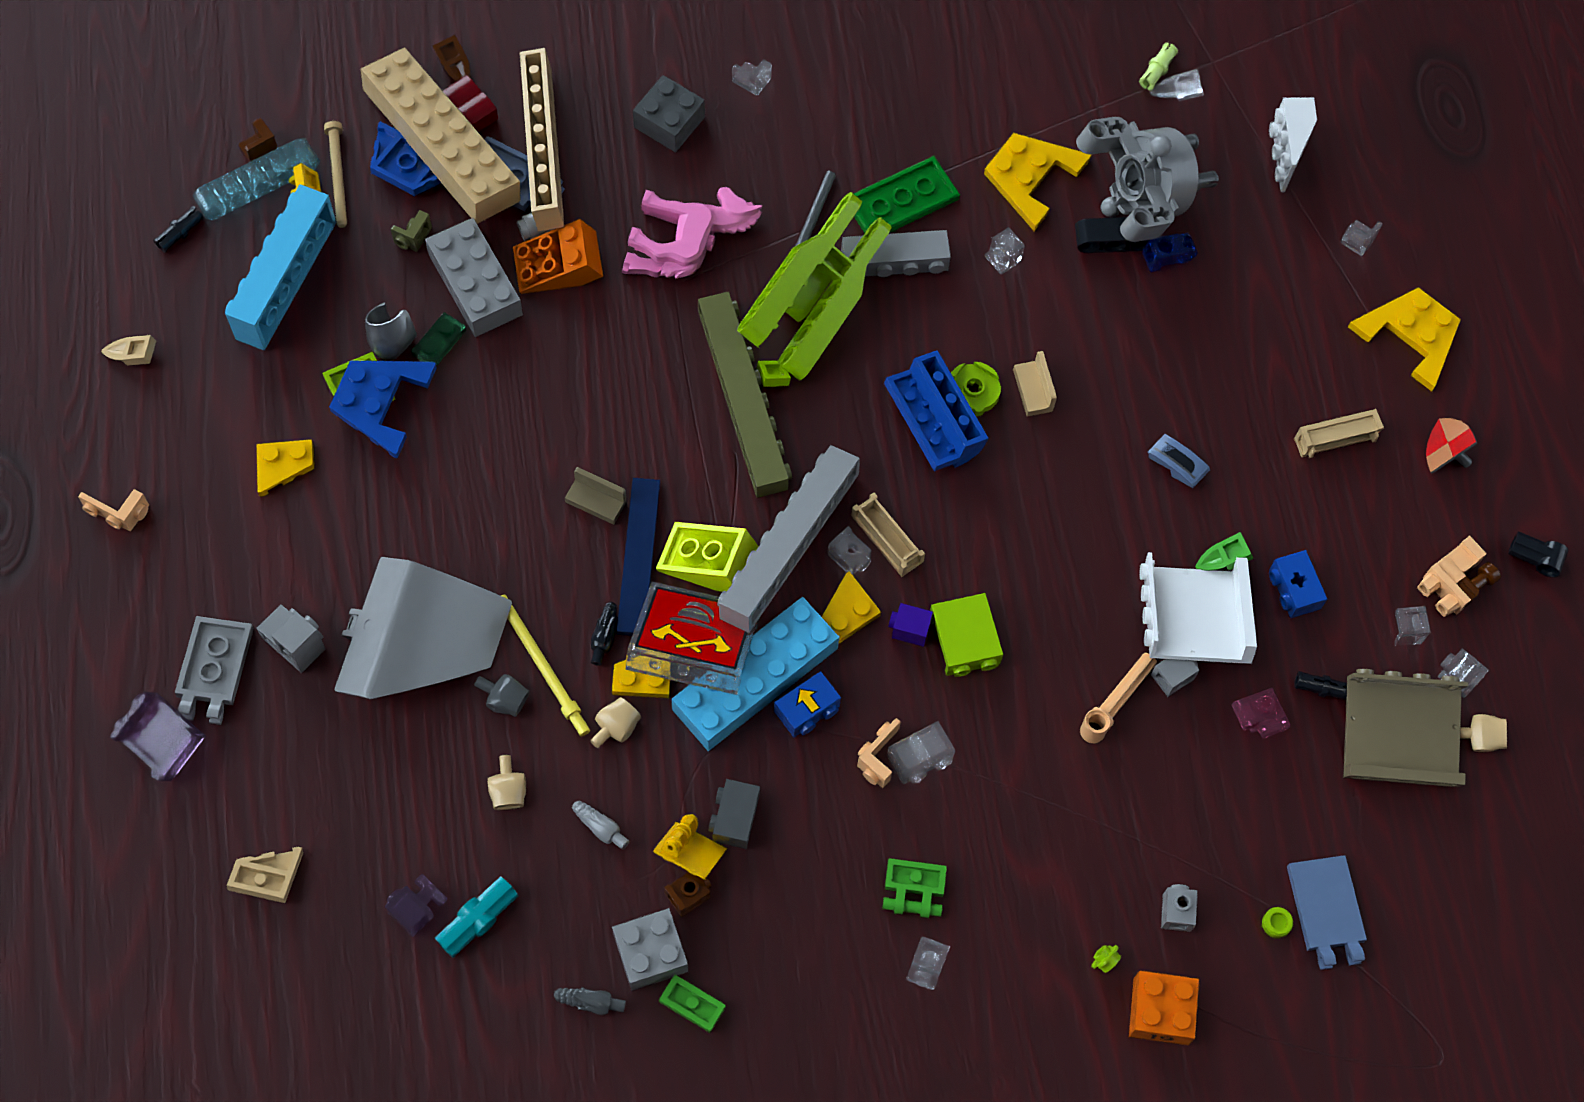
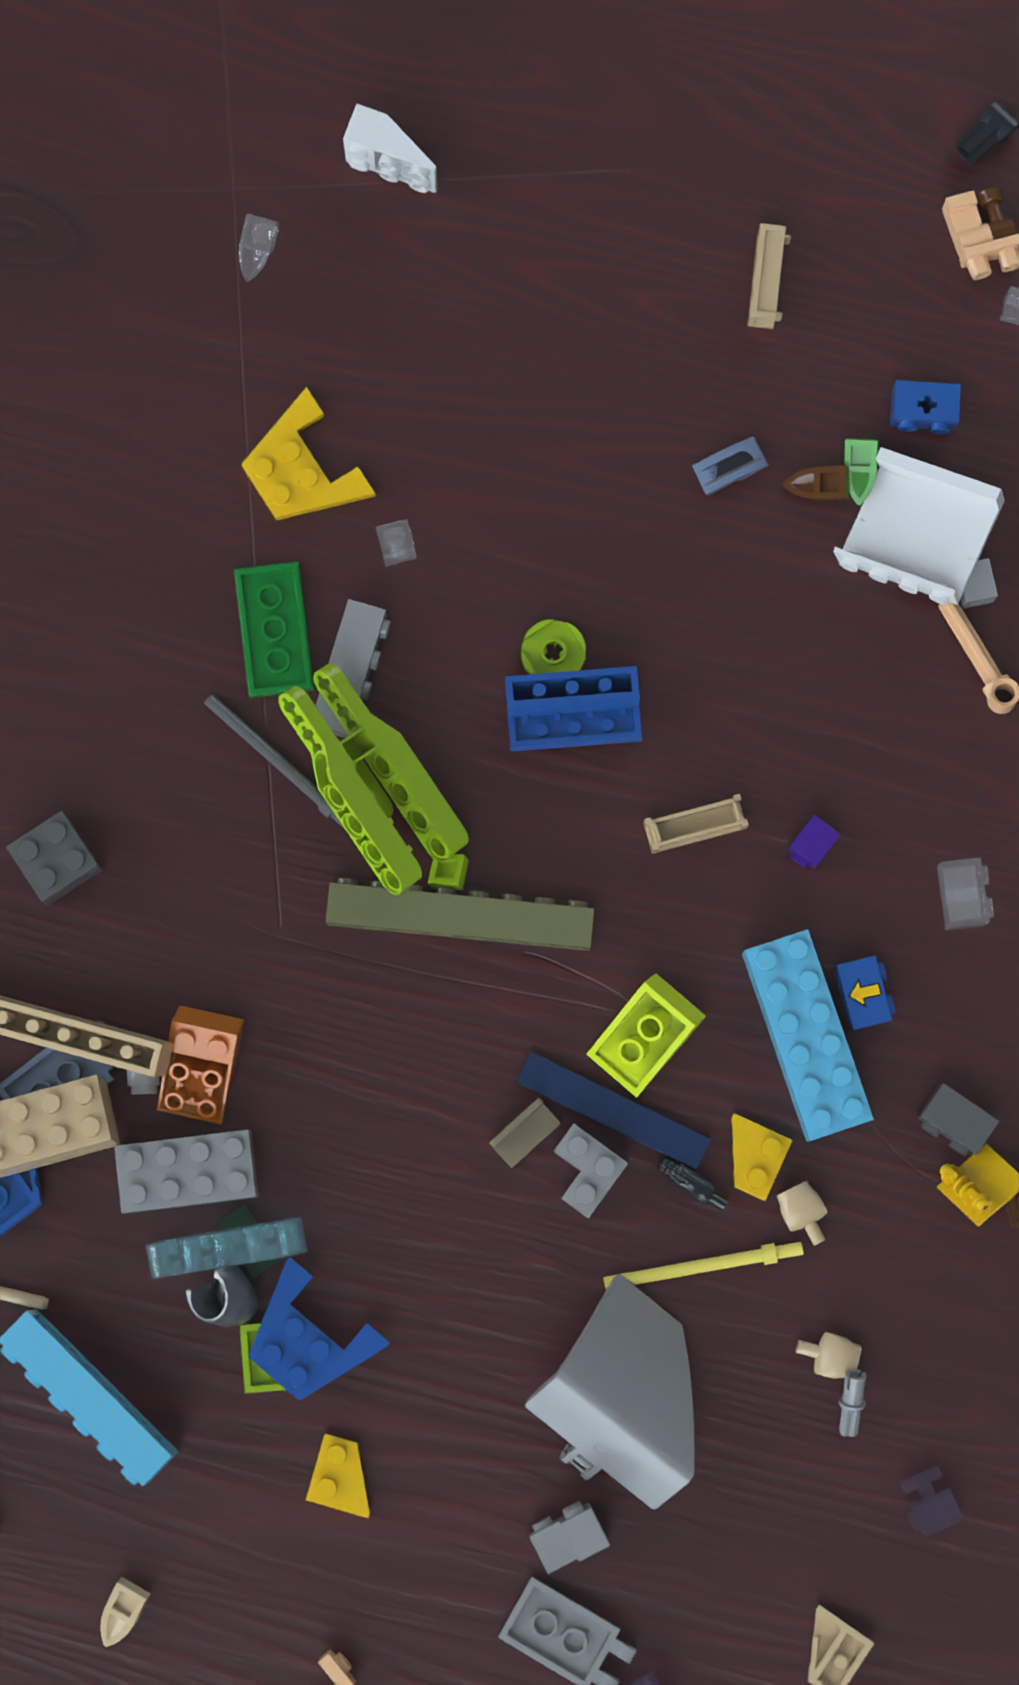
camera: 65 degrees left, 15 degrees up
(415, 233) = (94, 1216): olive bracket -> none
(427, 319) = (226, 1247): none -> clear light blue beam
(474, 812) = (852, 1402): none -> light grey axle
(476, 917) = (968, 1440): teal piece -> none
(505, 695) = (724, 1320): dark grey piece -> none
(584, 556) = (597, 1169): none -> light grey brick
(600, 825) = (914, 1269): light grey piece -> none
(687, 640) = (749, 1088): panel -> none
(694, 233) = (231, 893): bright pink animal -> none
(752, 77) = (37, 738): clear panel -> none
(788, 539) = (670, 936): light grey brick -> none
(849, 561) = (694, 883): clear brick -> none
(850, 608) = (766, 904): yellow wing -> none
(872, 768) = (964, 952): light nougat bracket -> none
(967, 635) = (849, 787): lime panel -> none
(1035, 386) = (577, 582): tan panel -> none
(1104, 235) = (422, 409): black beam -> none
(1152, 173) = (383, 336): light grey piece -> none
(1158, 66) = (218, 255): yellowish green pin -> none
(1169, 250) = (468, 356): clear blue leg -> none
(1198, 530) = (820, 483): none -> reddish brown plate
(1360, 237) = (534, 132): clear panel -> none
(1420, 324) = (666, 120): yellow wing -> none
(1449, 442) = (827, 164): shield -> none

